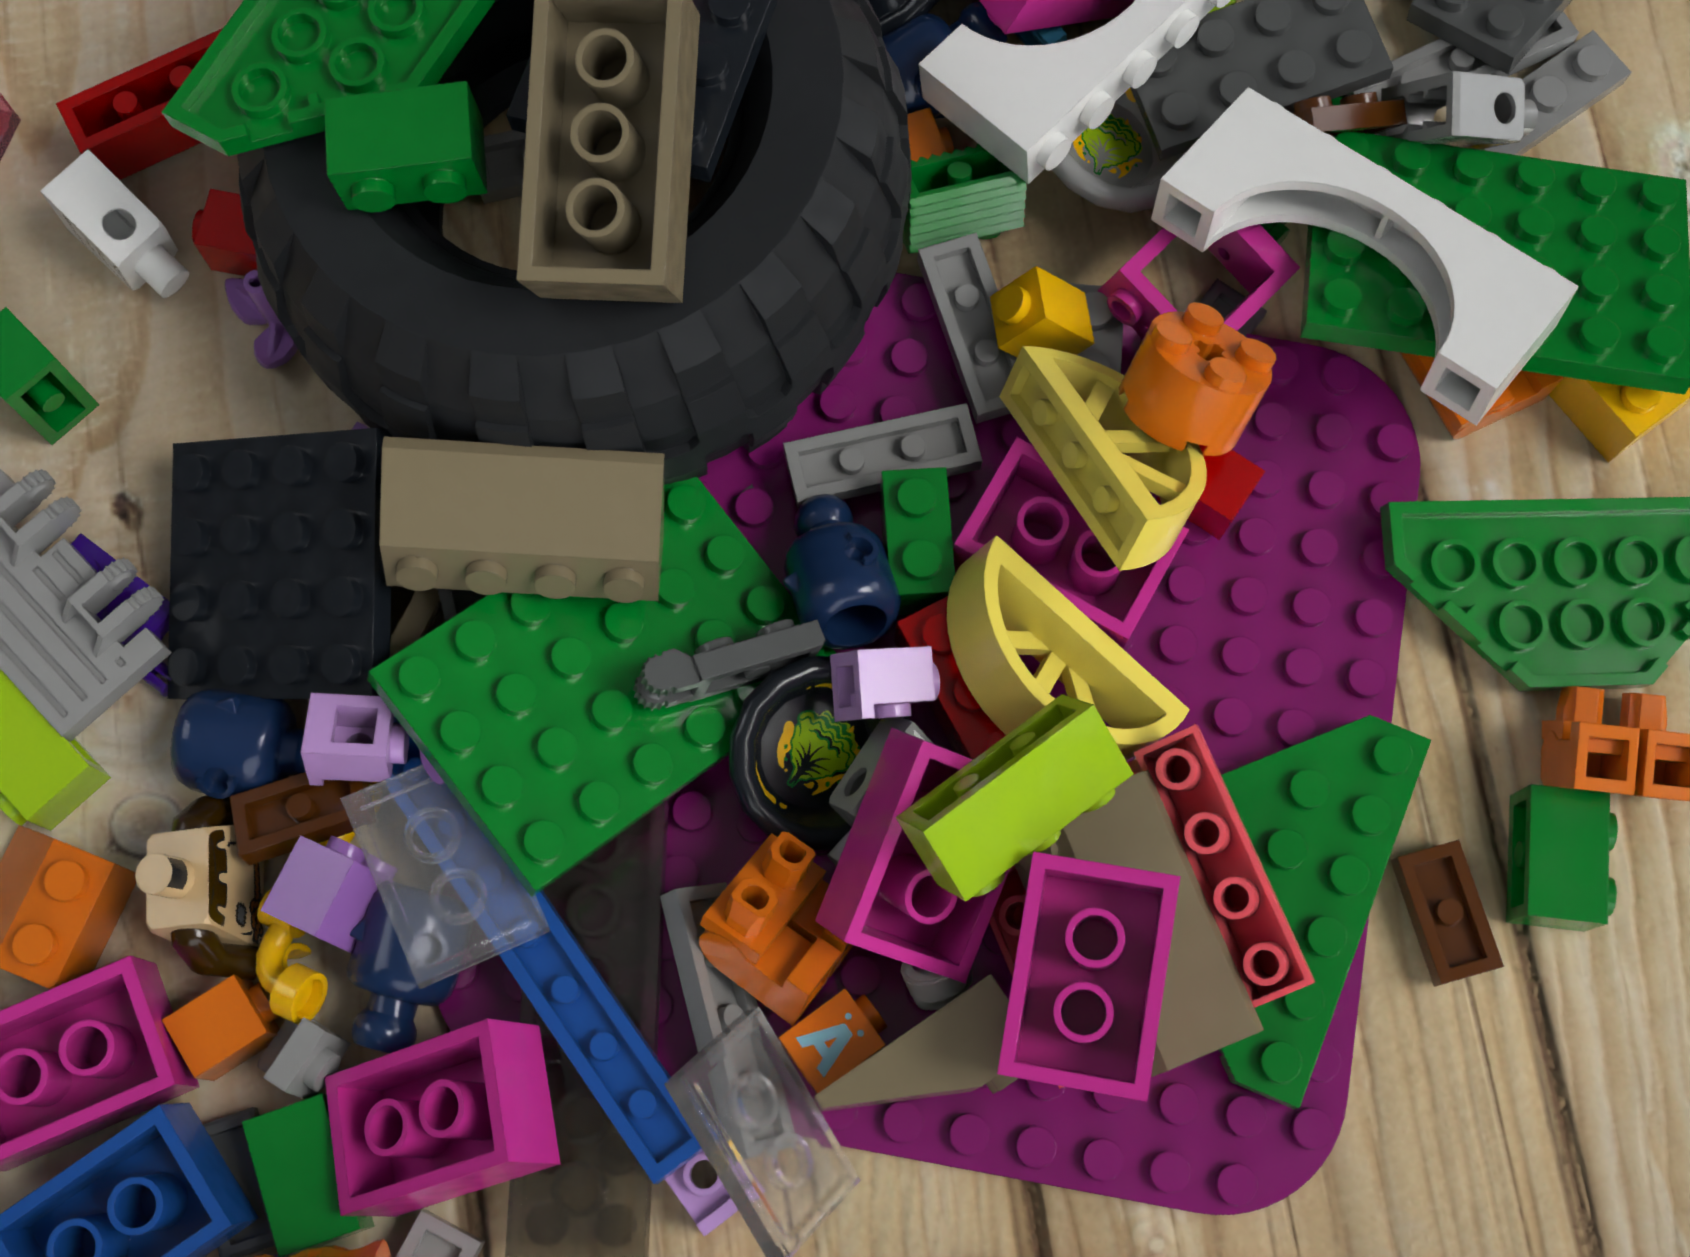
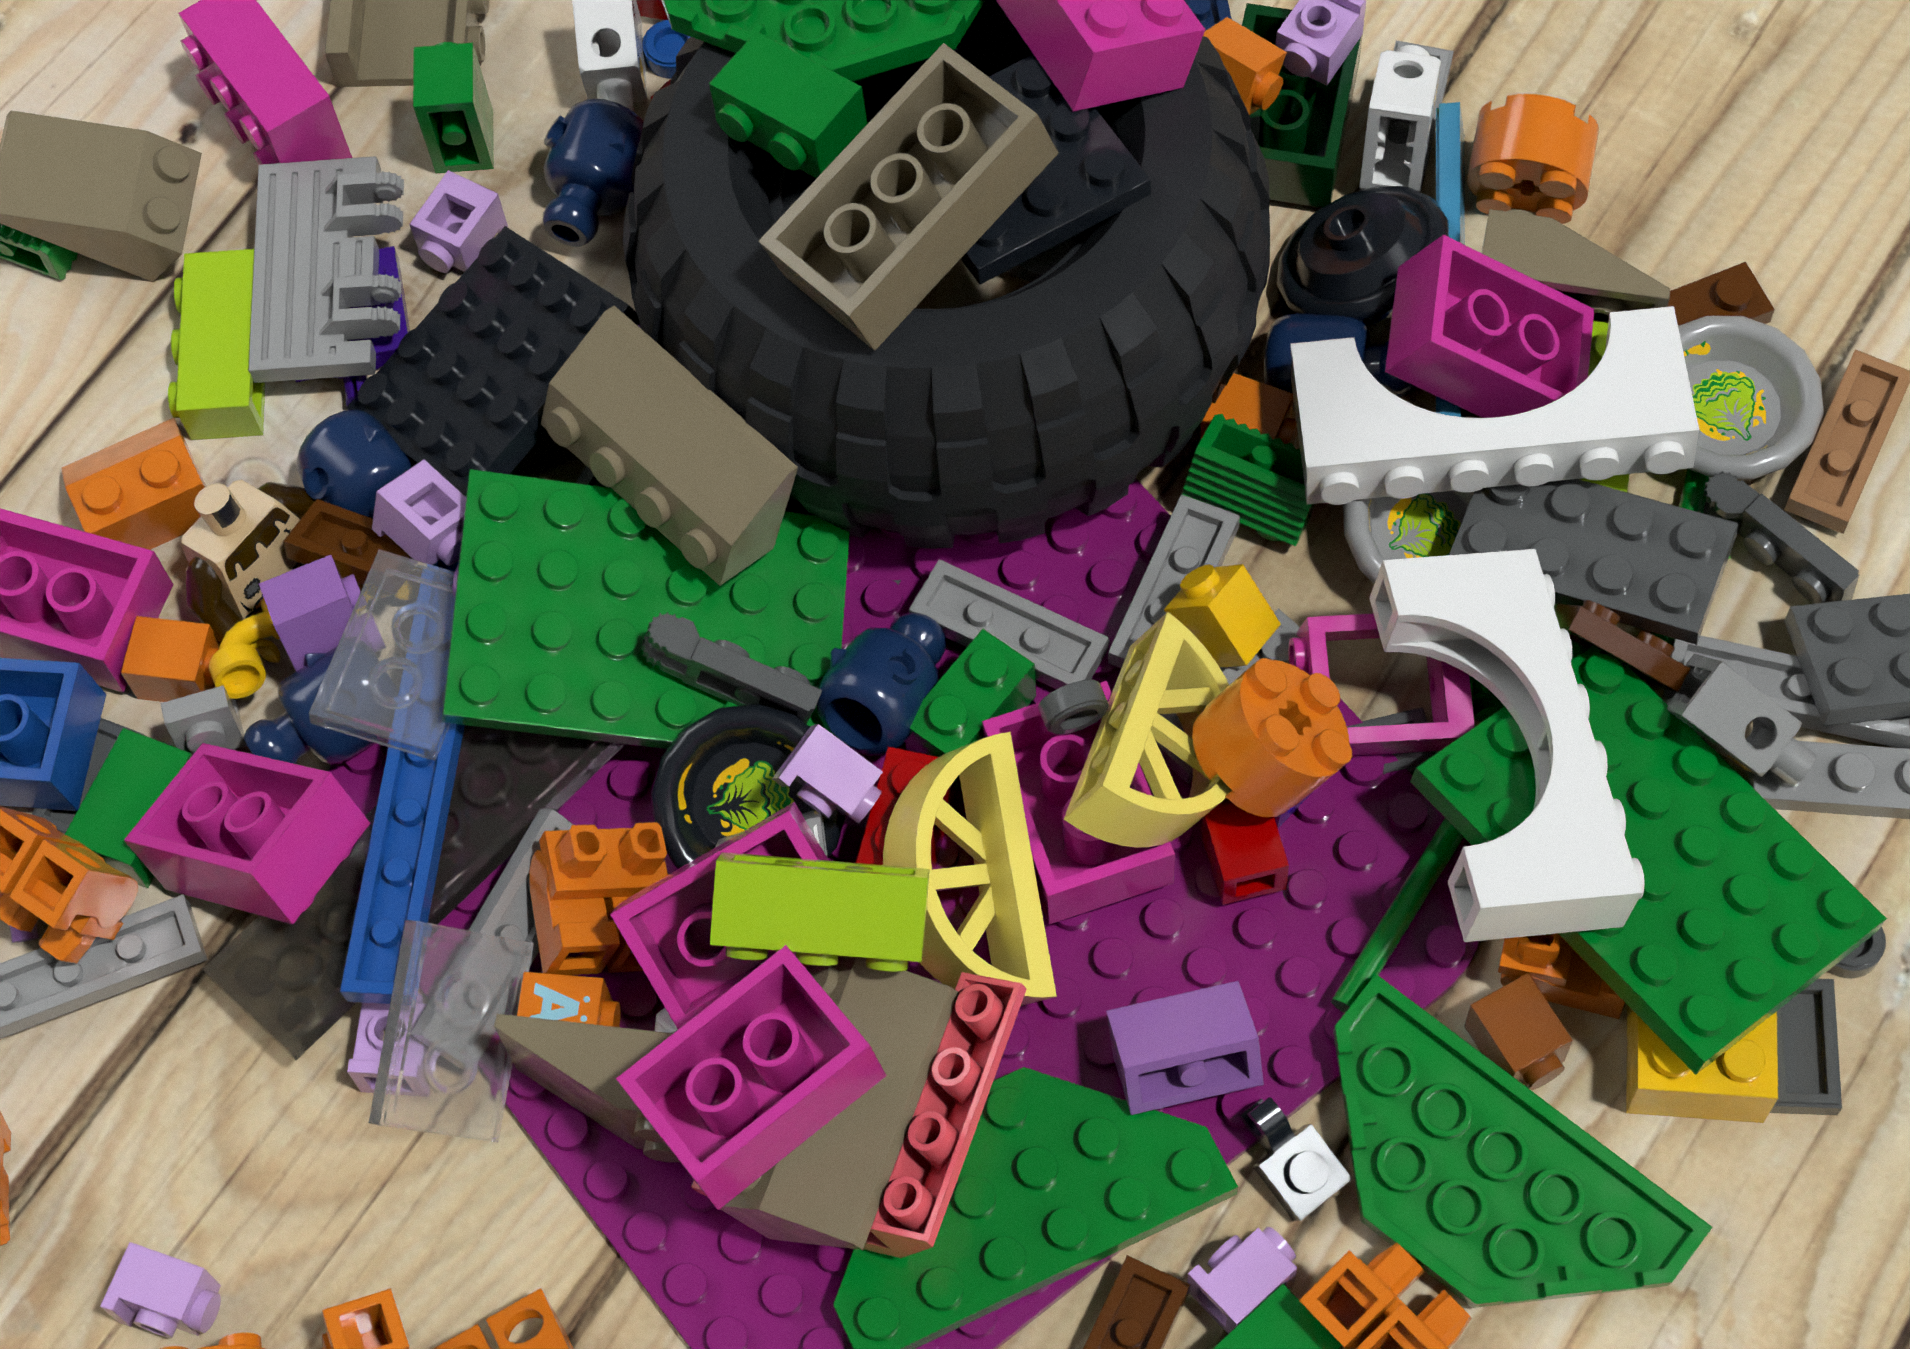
camera: 50 degrees right, 10 degrees down
(108, 459) = (456, 223): none -> lavender brick
(164, 191) = (661, 48): none -> blue tile
(196, 339) = (589, 168): none -> dark blue piece
(1025, 477) = (1073, 707): none -> dark grey tile
(1309, 668) = (1185, 1047): none -> medium lavender brick
(1351, 444) = (1399, 914): none -> green bar
(1443, 686) = (1298, 1164): none -> plate
(1490, 802) = (1243, 1276): none -> lavender brick
(1506, 463) = (1520, 1032): none -> dark orange brick

